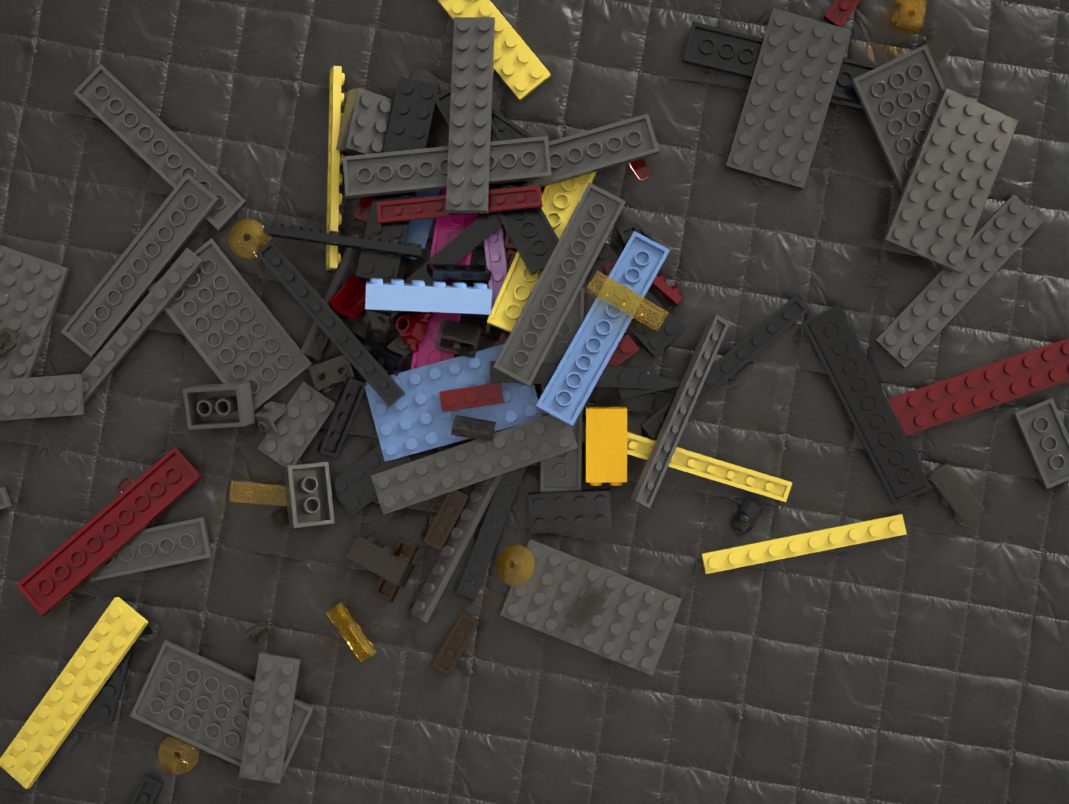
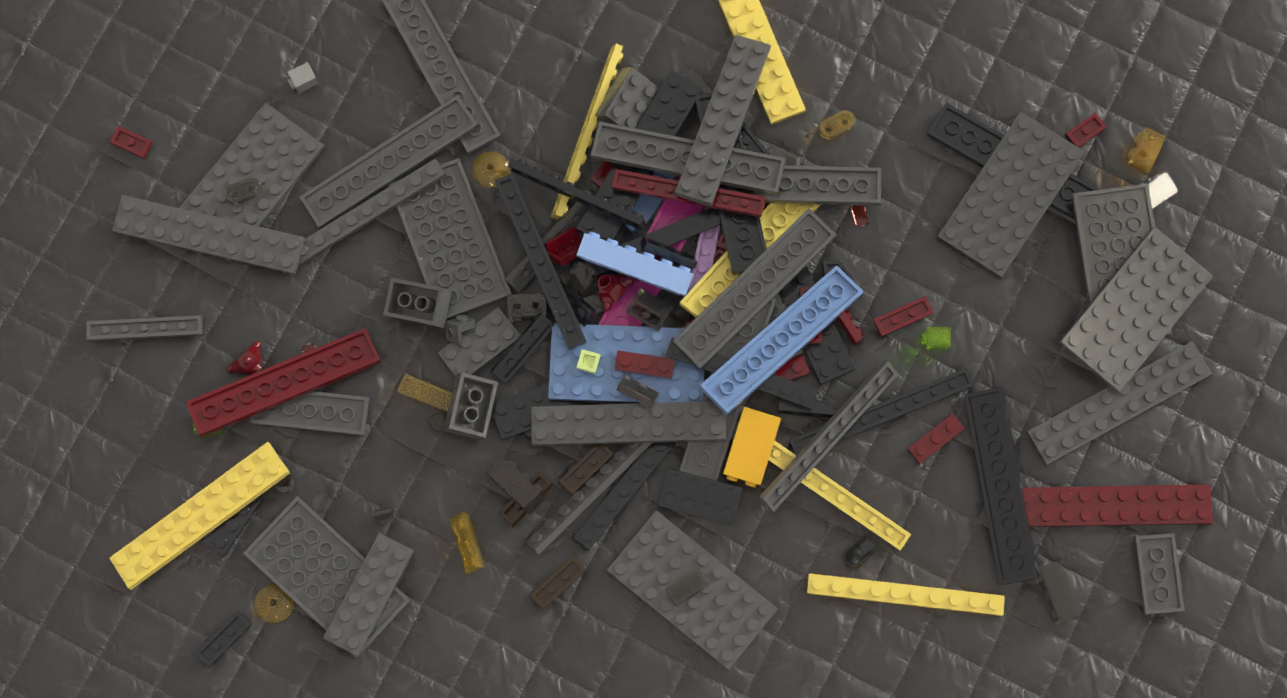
camera: 15 degrees right, 10 degrees down
(20, 204) = (302, 78): none -> light grey brick
(66, 518) = (247, 361): none -> dark red rock
(413, 412) = (588, 361): none -> yellowish green plate
(523, 567) = (640, 534): clear yellow dish -> none
(587, 80) = (835, 123): none -> clear yellow plate
(627, 301) = (811, 322): clear yellow tile -> none
(716, 261) = (903, 316): none -> dark red plate
(757, 273) = (937, 338): none -> clear neon green brick
(786, 376) = (936, 439): none -> dark red plate

